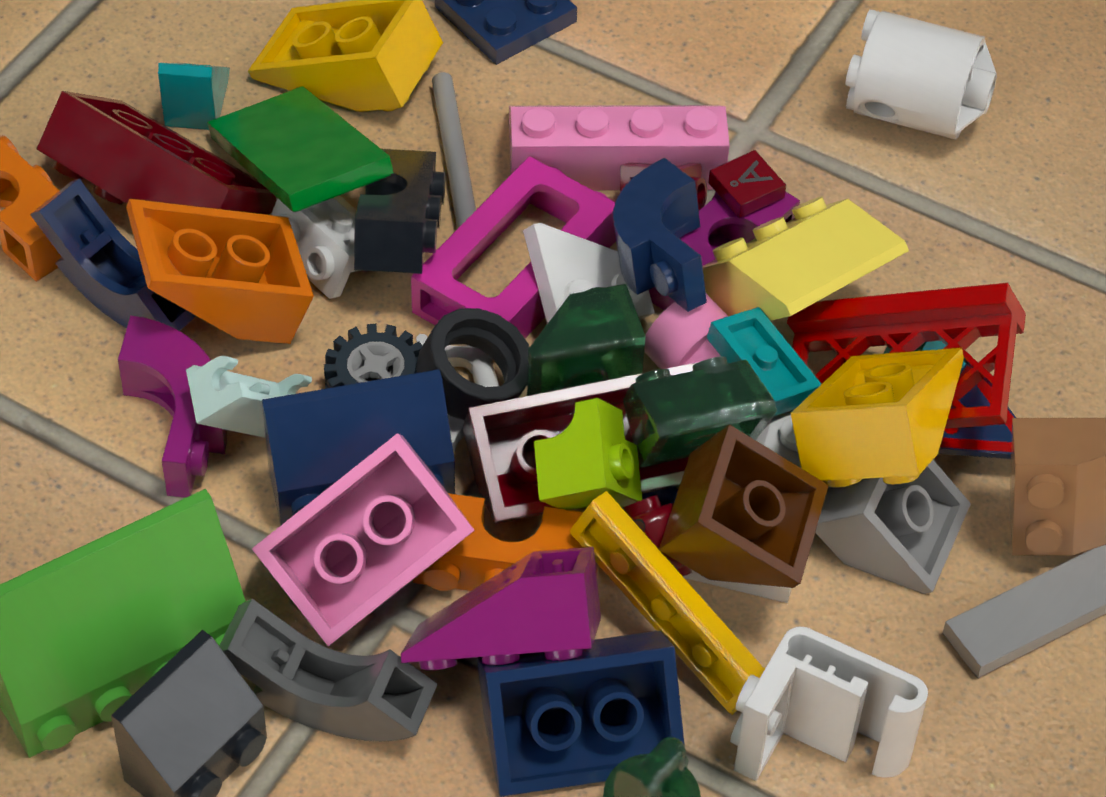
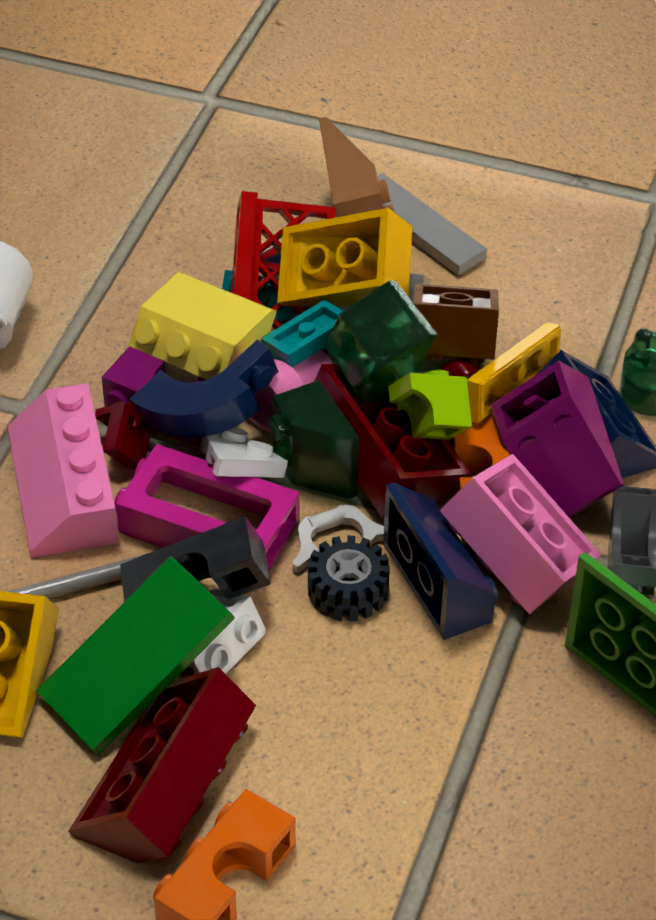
camera: 100 degrees left, 5 degrees down
(102, 259) = (300, 754): dark blue arch -> none
(154, 368) = (407, 683): magenta arch -> none
(192, 93) = (52, 764): teal slope -> none
(224, 267) = (291, 656): orange slope -> none
(234, 399) = (422, 620): light aqua hinge -> none
(492, 336) = (339, 502): black tyre -> none
(747, 184) = (127, 368): dark red tile -> none
(823, 698) = (563, 302): white piece -> none

